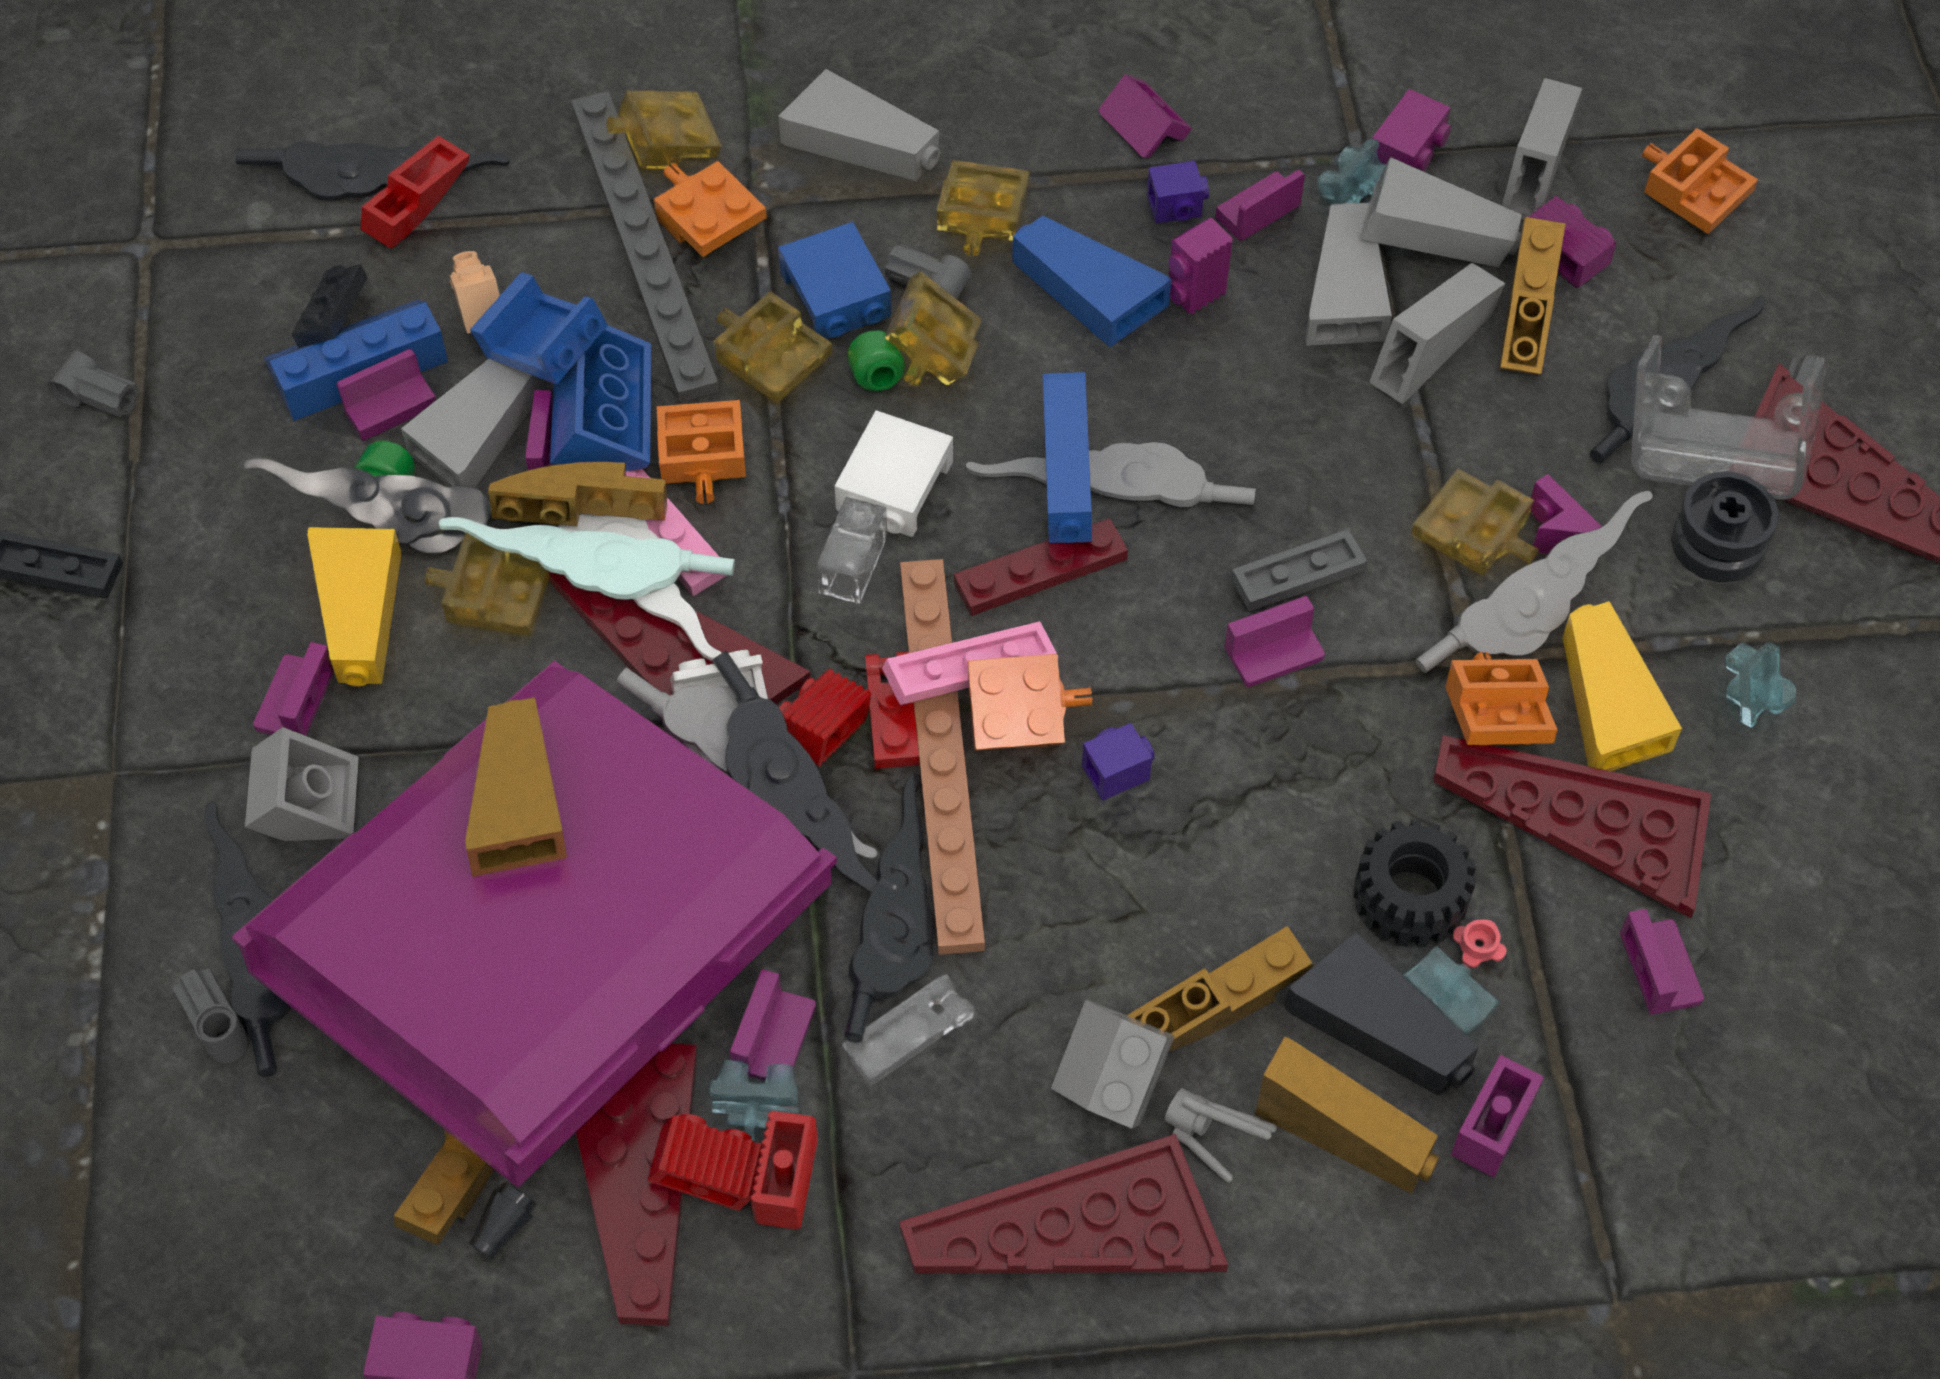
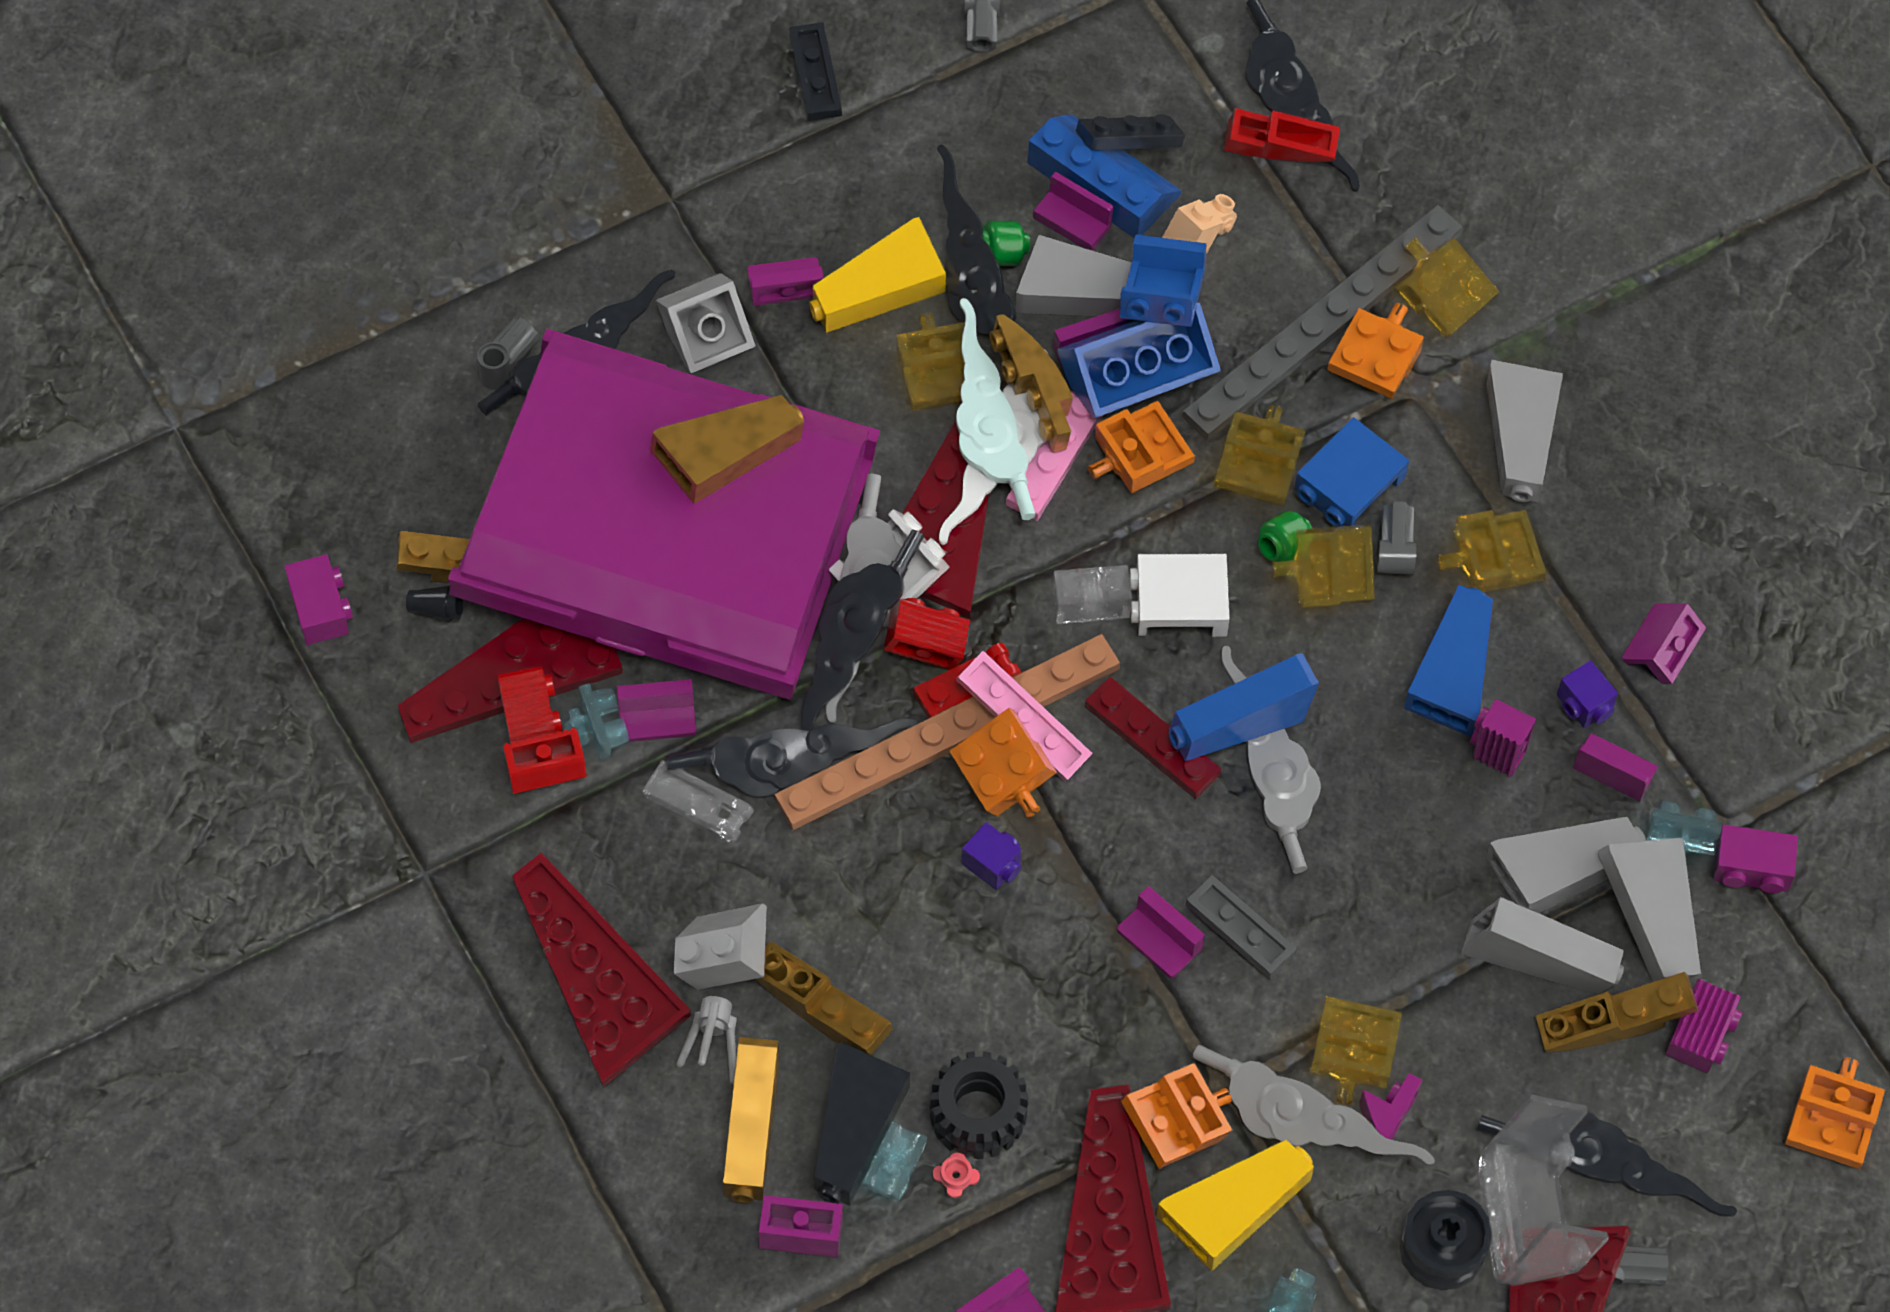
camera: 65 degrees right, 5 degrees up
(1541, 147) = (1799, 968): light grey slope -> none

